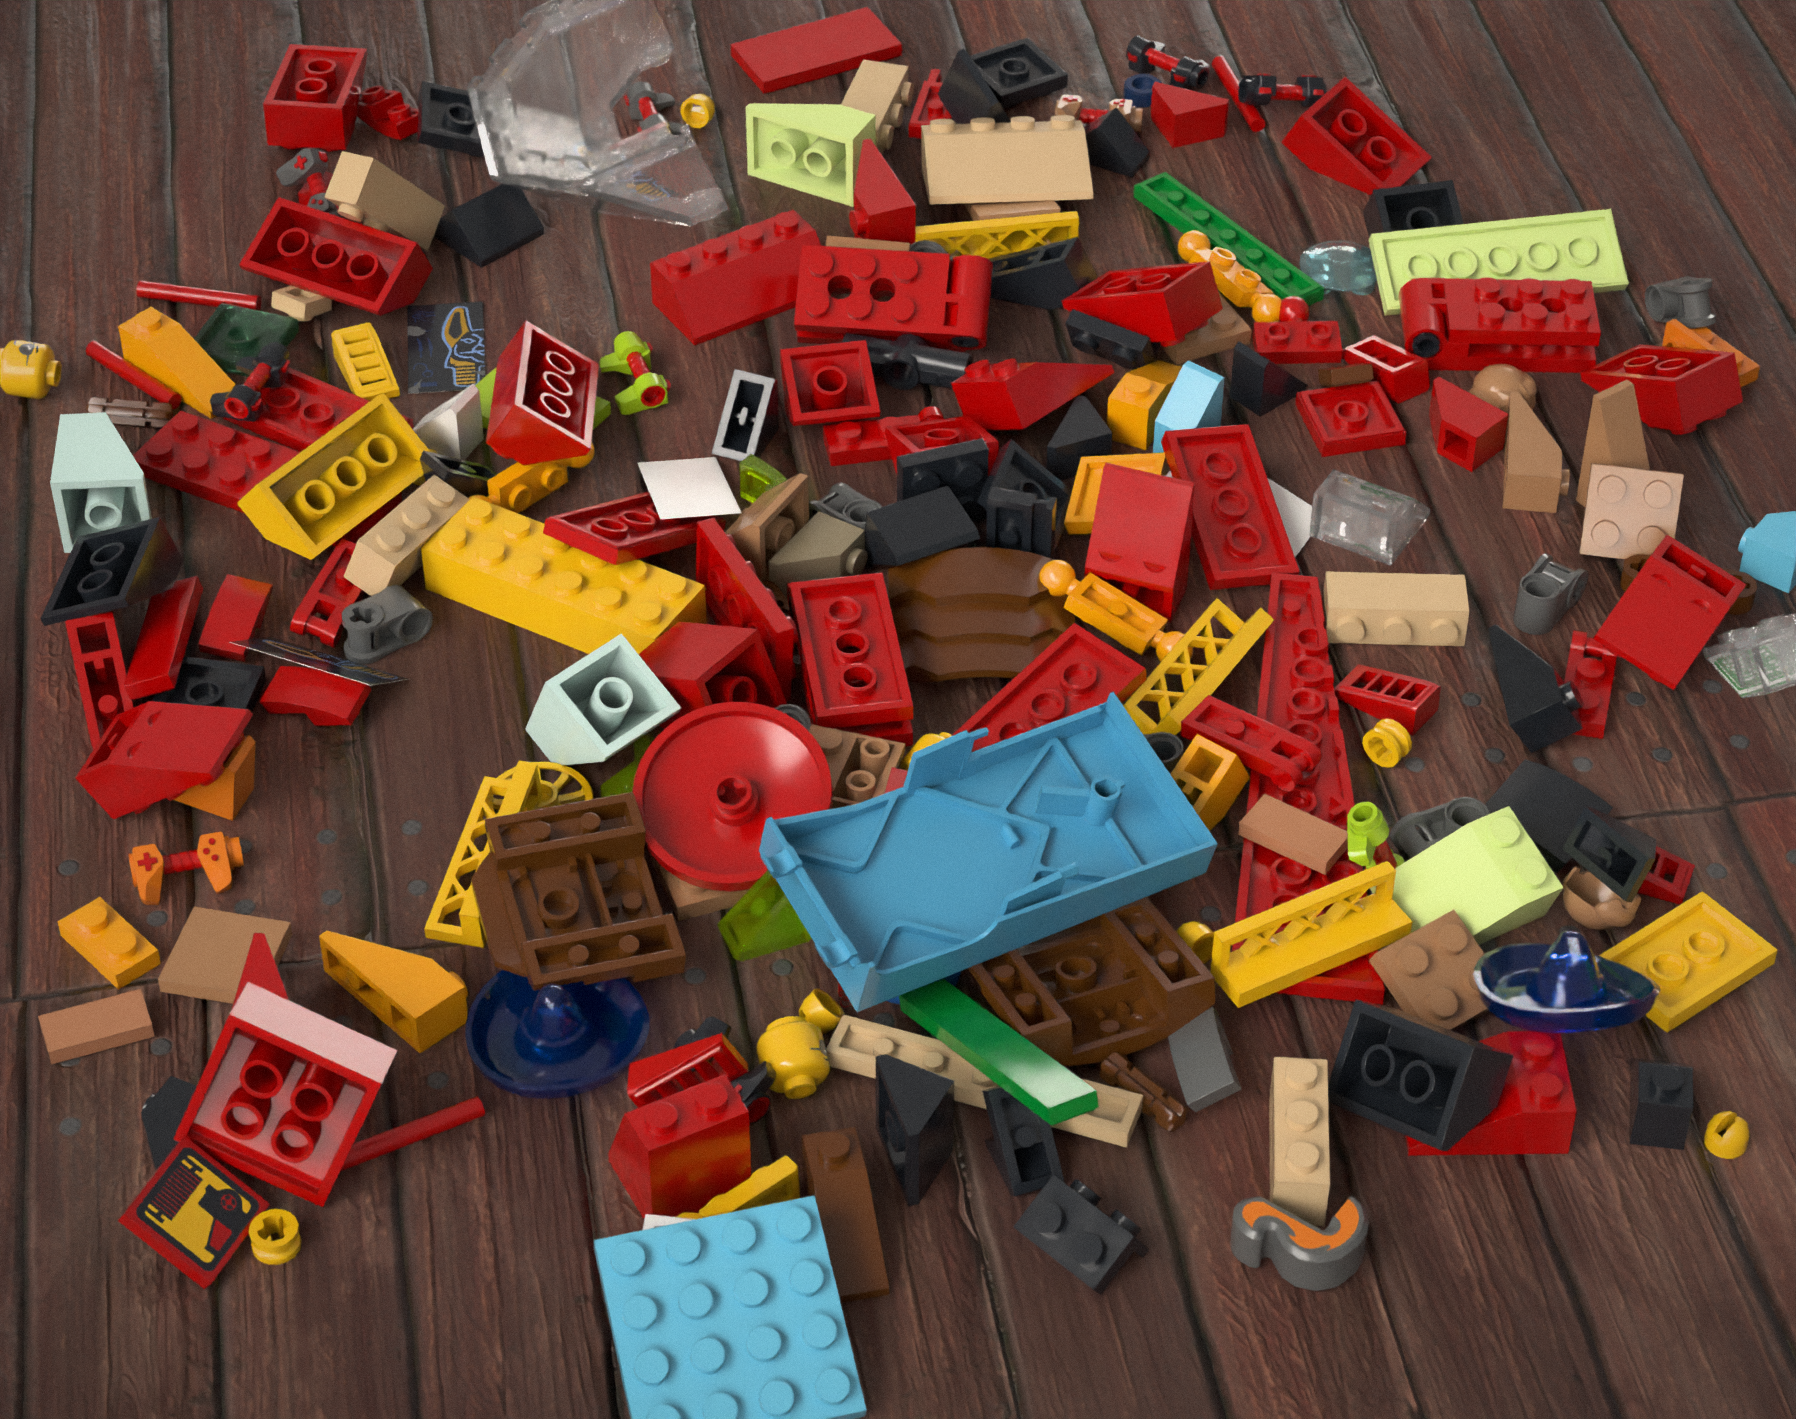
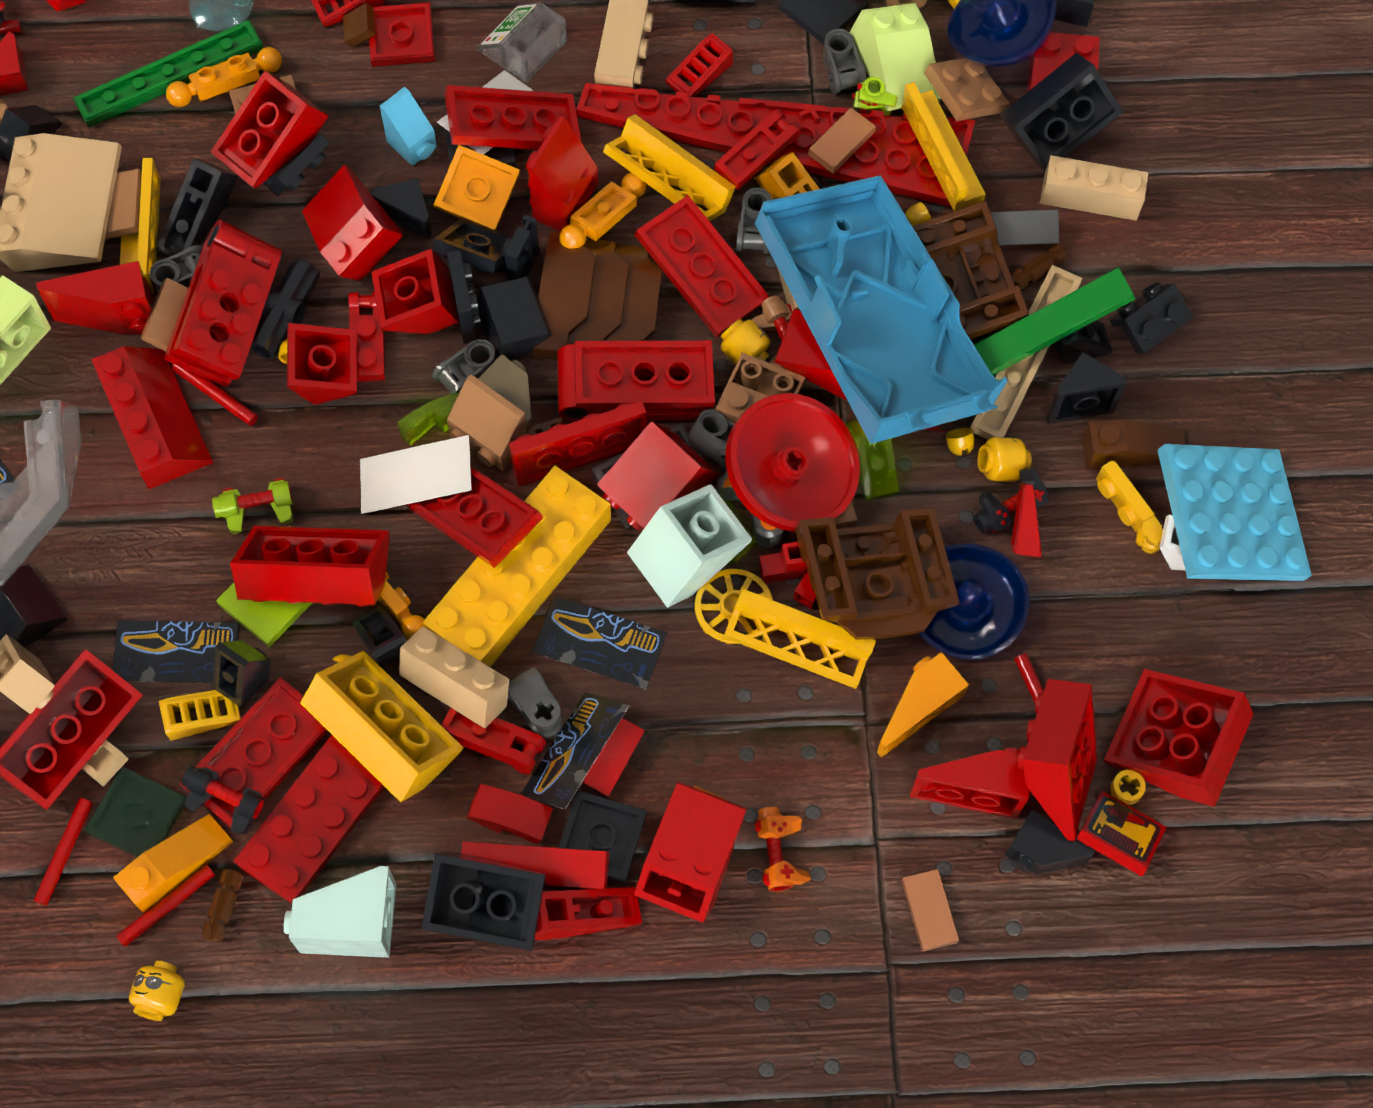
camera: 85 degrees left, 25 degrees up
(109, 943) = (847, 904): light orange plate -> none
(214, 950) = (877, 819): medium nougat tile -> none
(349, 1292) = (1181, 735): none -> red slope
(410, 369) = (239, 670): none -> black slope
(454, 426) = (299, 649): white slope -> none
(479, 686) = (599, 642): none -> black sticker
(683, 1149) = (1093, 526): red slope -> none
(748, 416) = (339, 427): black slope -> none
(771, 343) = (218, 395): none -> red bar
(1138, 402) = (364, 152): light orange slope -> none
(1260, 382) = (357, 78): black slope -> none
(1297, 339) = (306, 49): red plate -> none
(1299, 1249) = (1177, 194): dark grey animal -> none
(1387, 743) = (750, 76): yellow bush -> none

